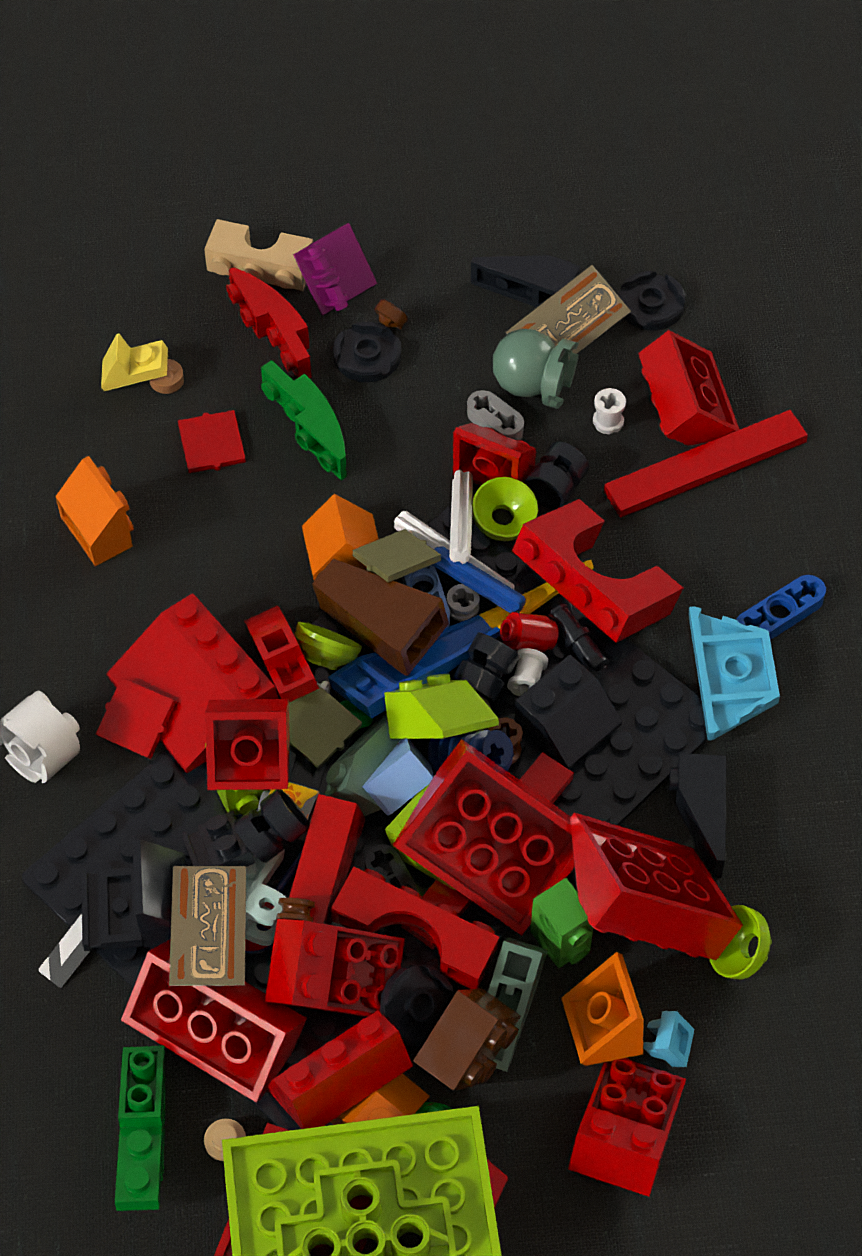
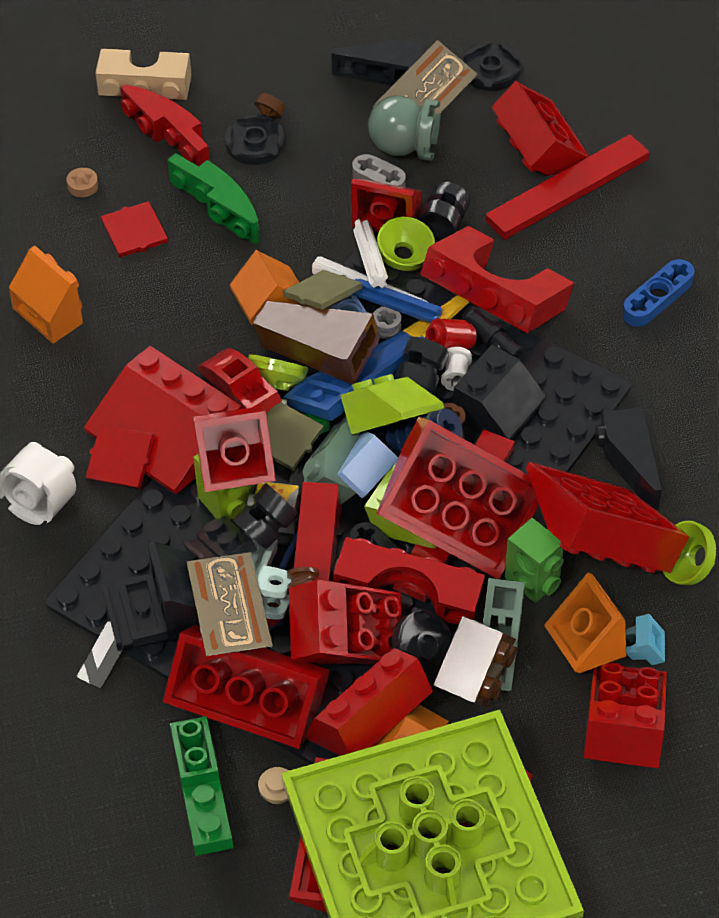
camera: 10 degrees left, 5 degrees down
(132, 365) = (48, 177): light yellow slope -> none
(335, 269) = (213, 75): magenta hinge -> none
(609, 406) = (476, 153): white bush -> none
(732, 671) = (631, 342): medium azure wing -> none

